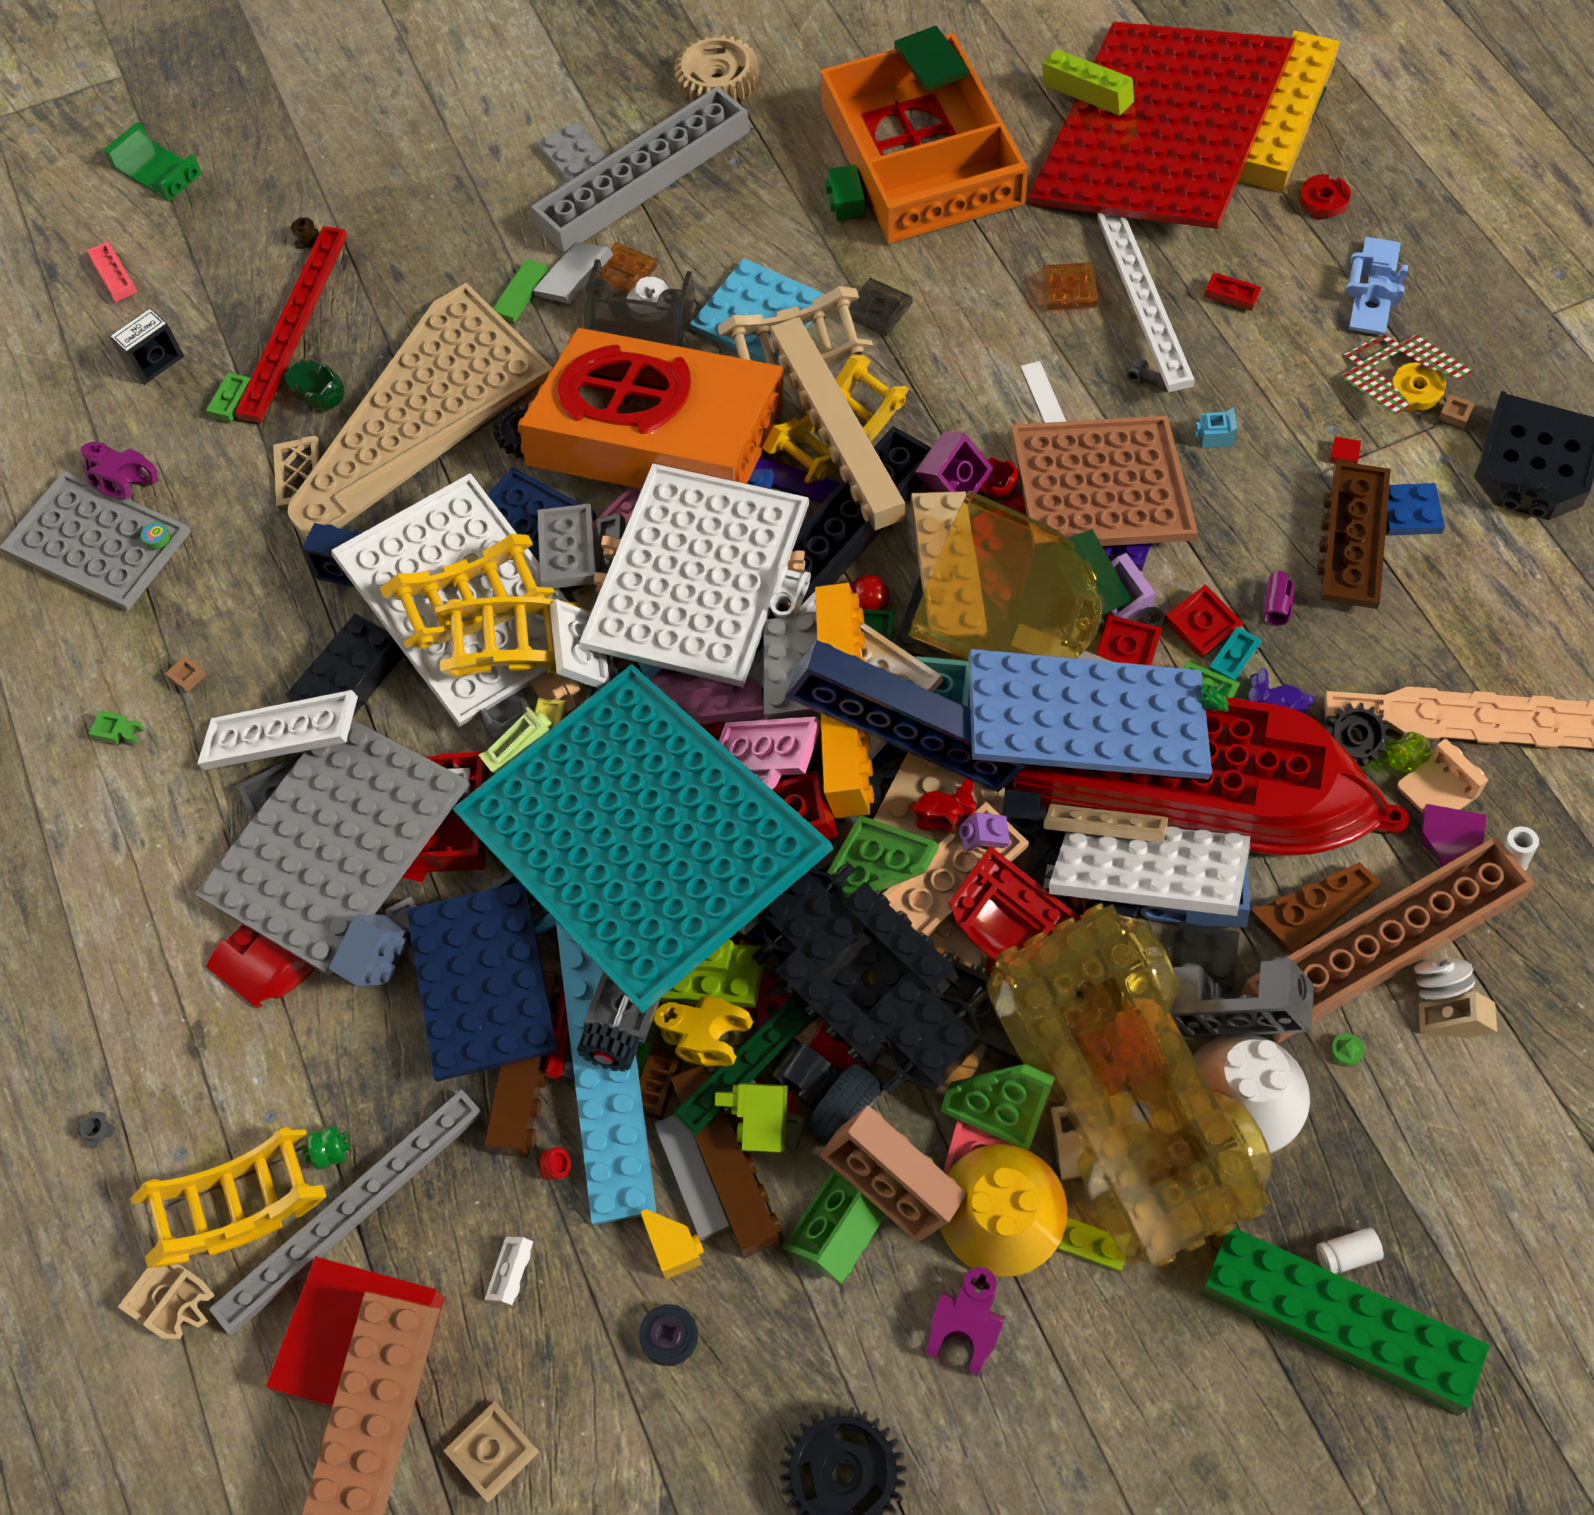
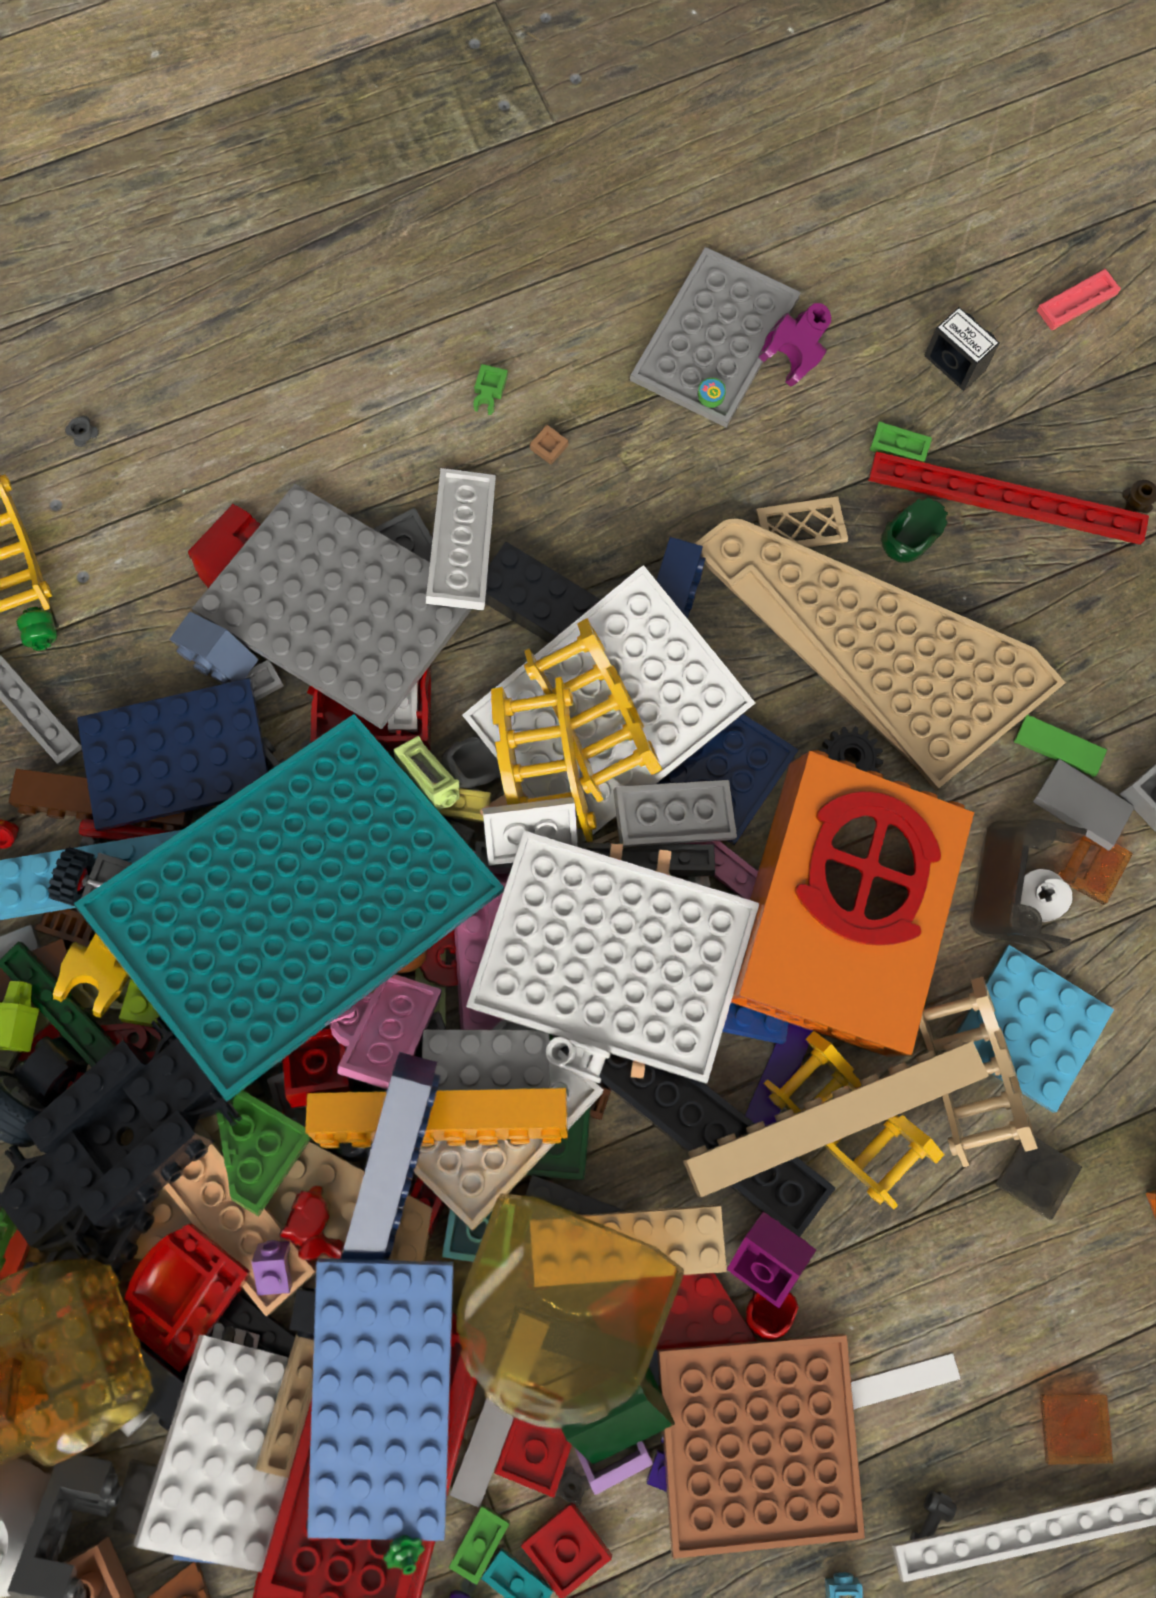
camera: 85 degrees right, 15 degrees up
(871, 592) = (619, 1151): red hair -> none

